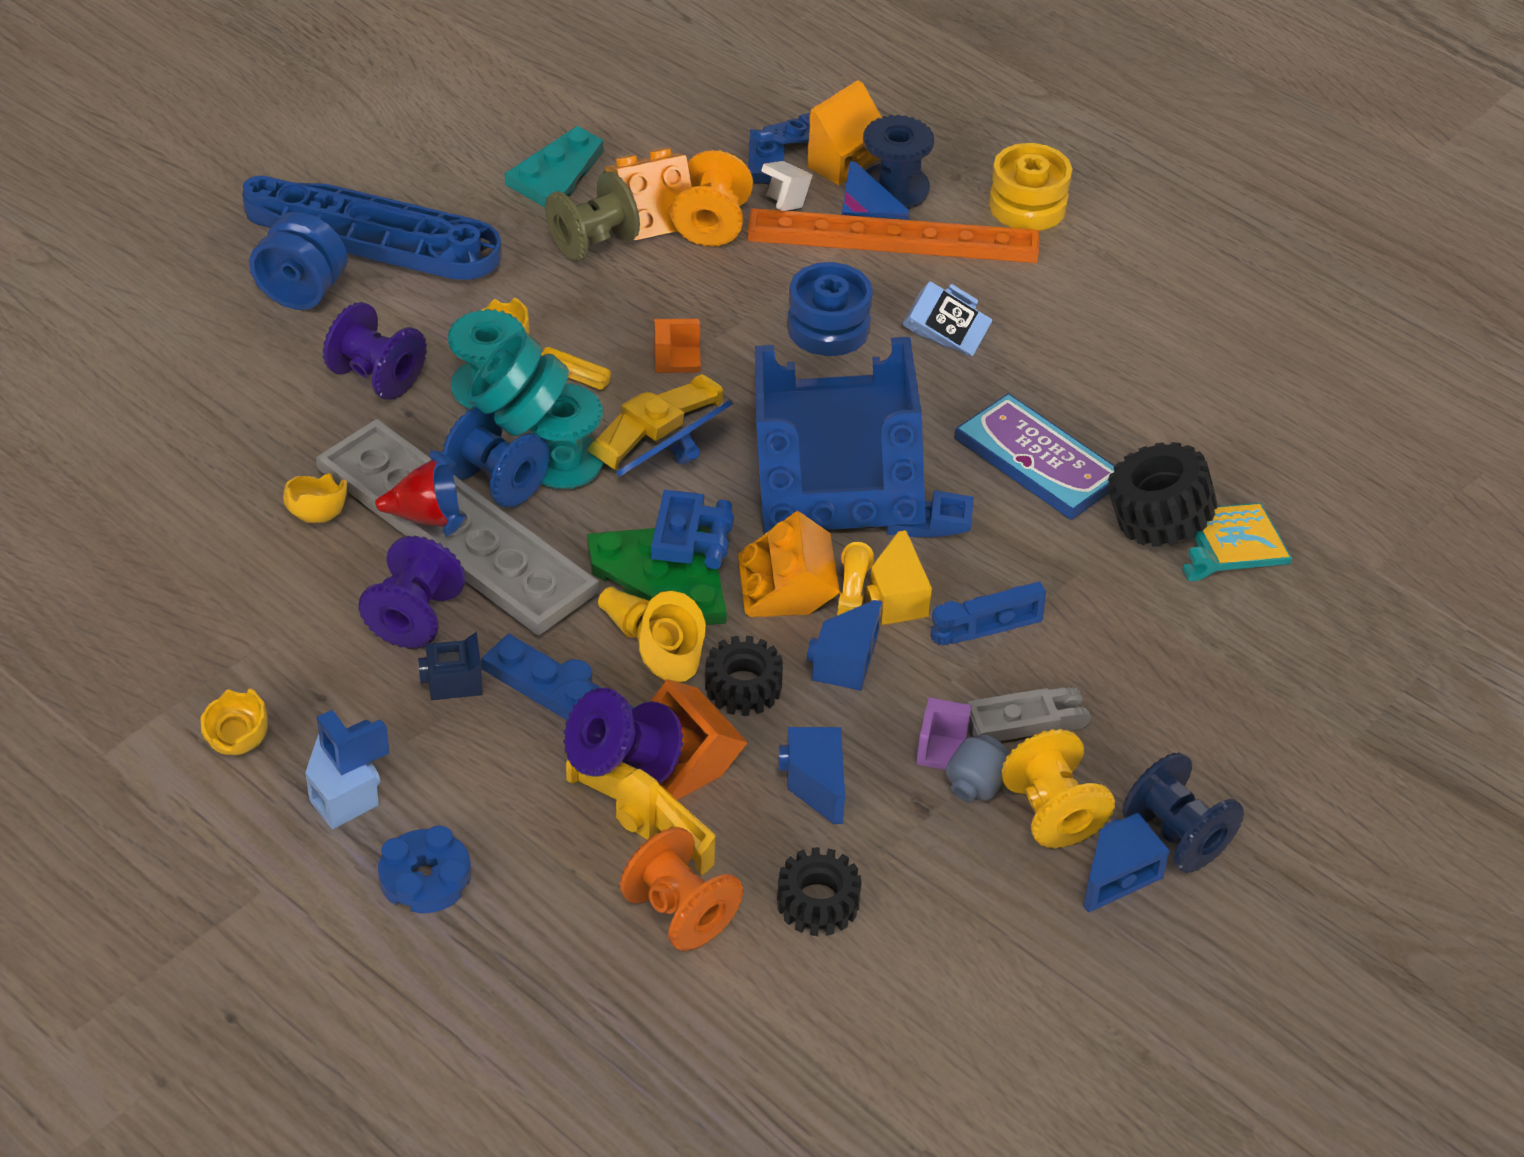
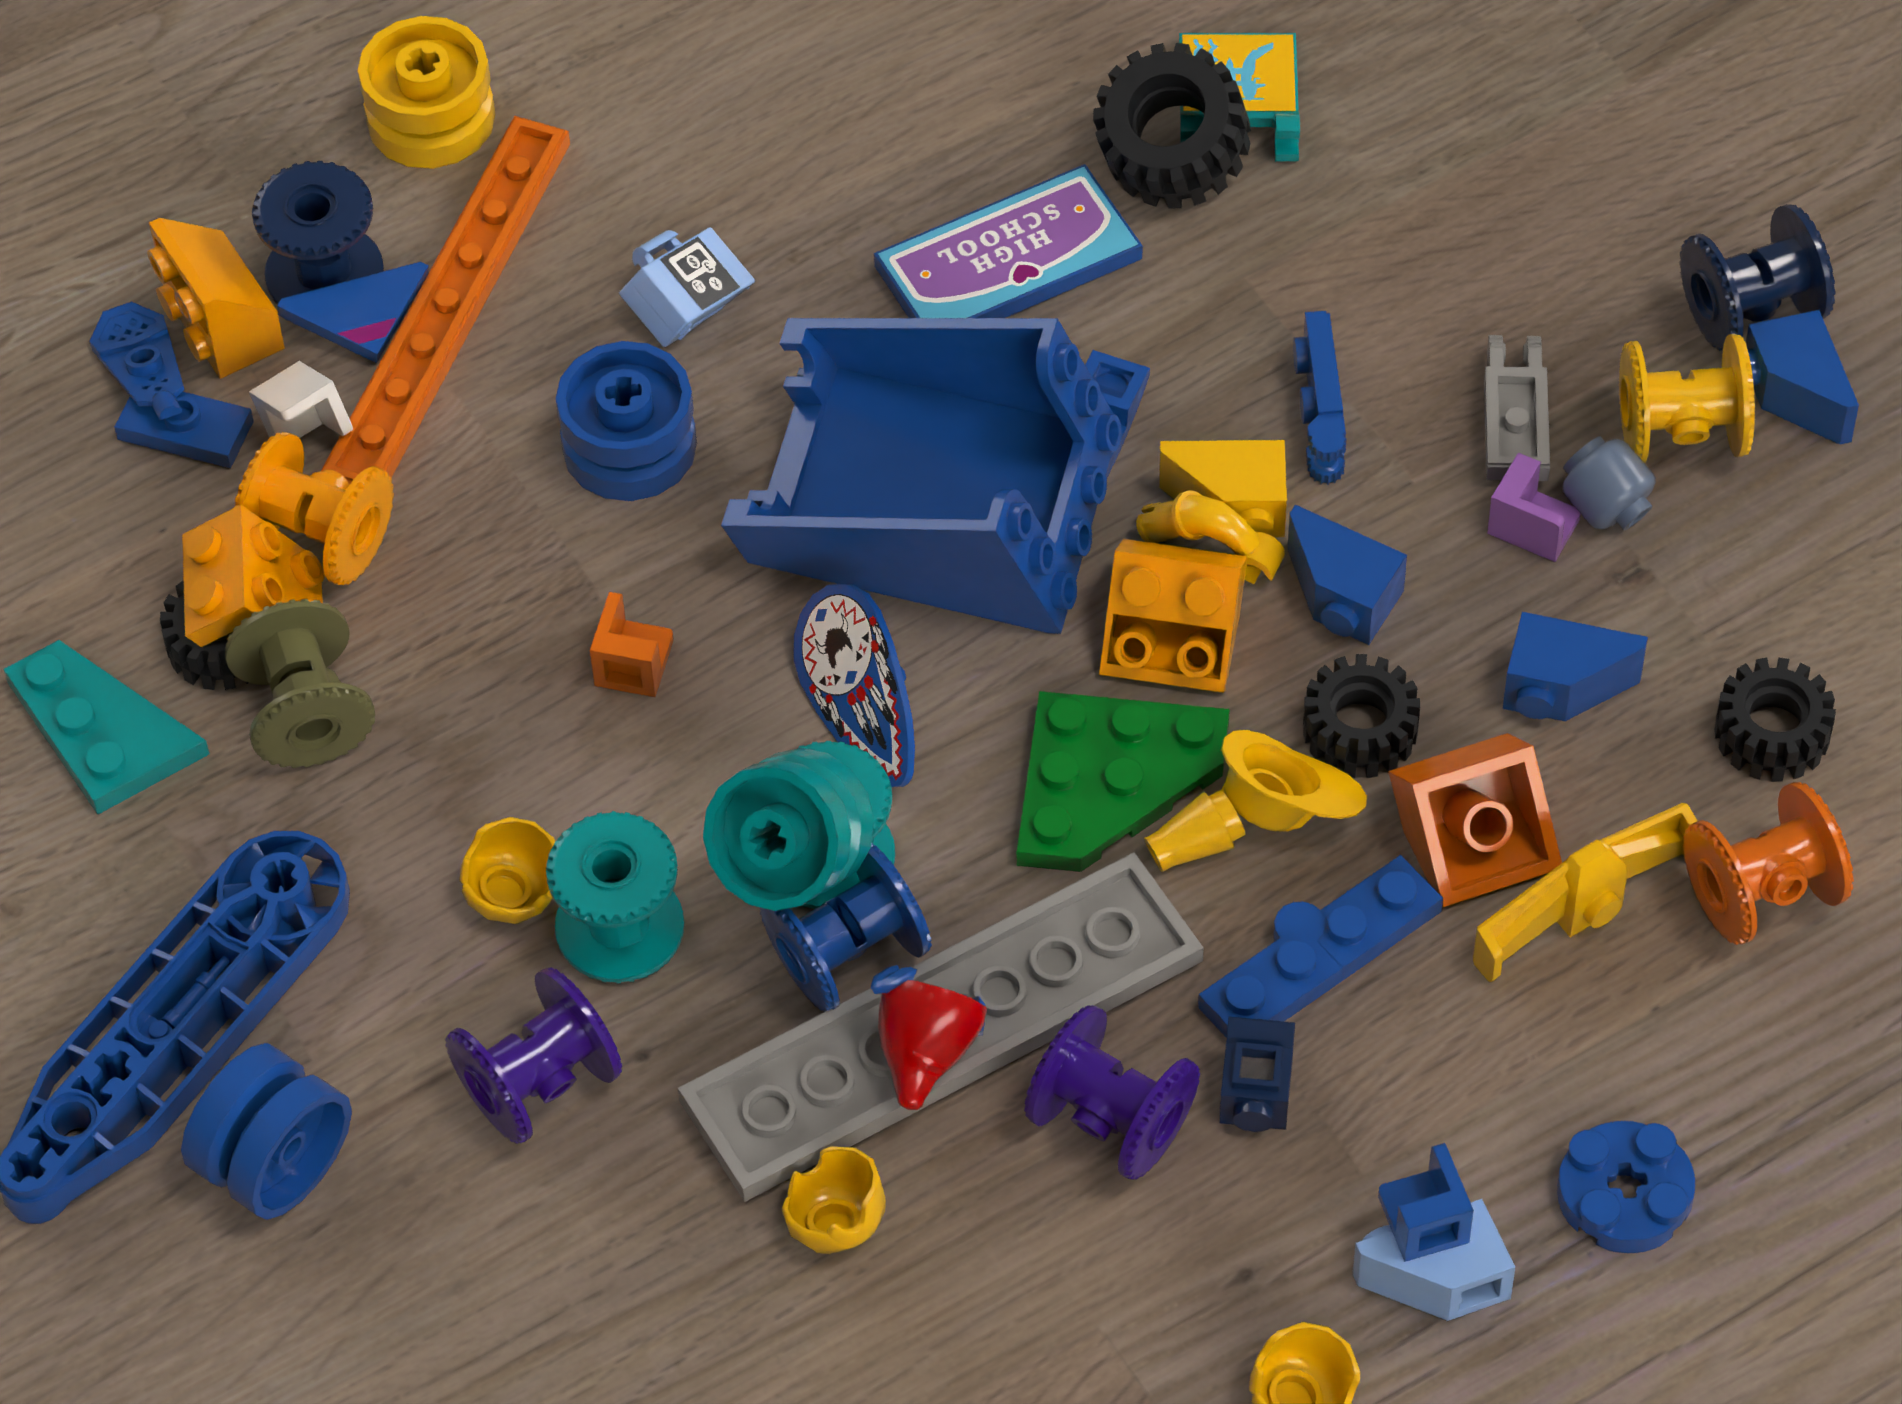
camera: 70 degrees left, 10 degrees up
(582, 370) = (635, 786): yellow axle -> none
(608, 732) = (1501, 867): dark purple hose -> none
(652, 416) = (762, 708): yellow plate -> none
(678, 529) = (1073, 717): blue plate -> none

